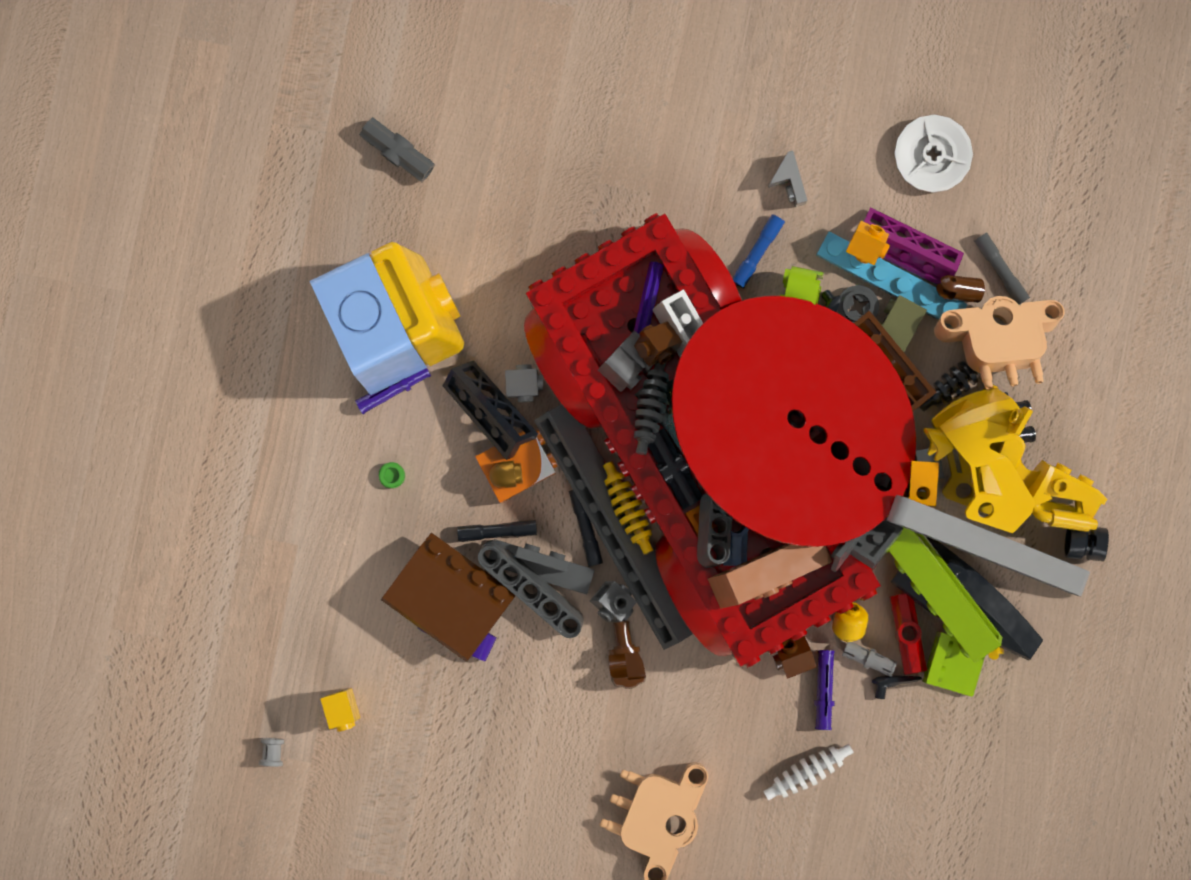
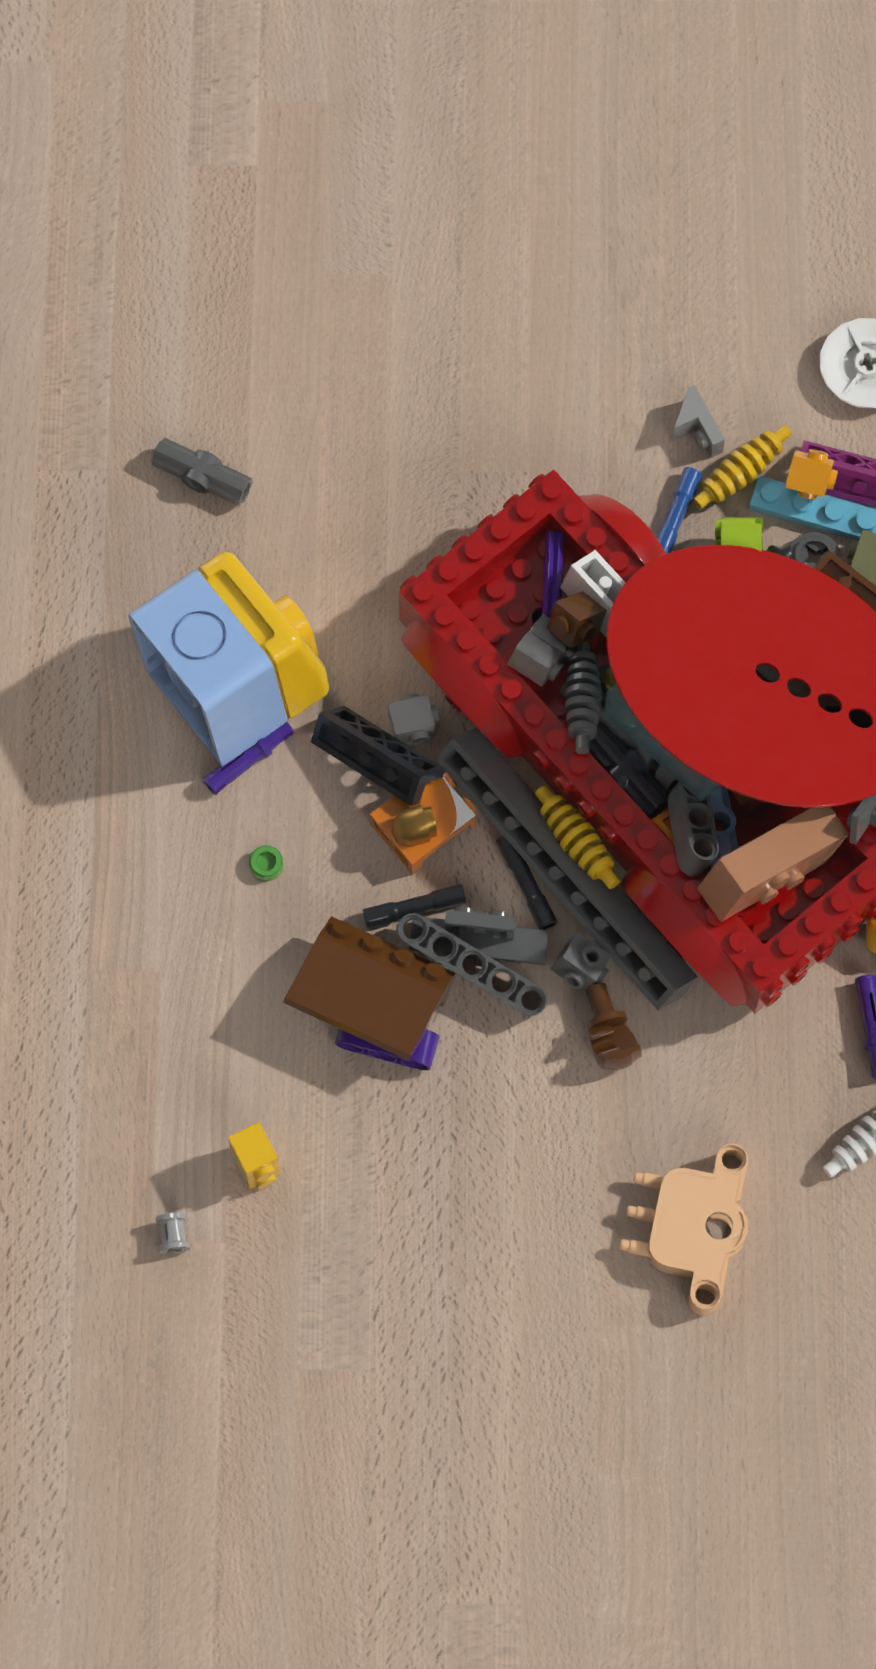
camera: 20 degrees left, 15 degrees down
(795, 657) = (826, 988): reddish brown brick -> none
(817, 221) = (742, 466): none -> yellow piece

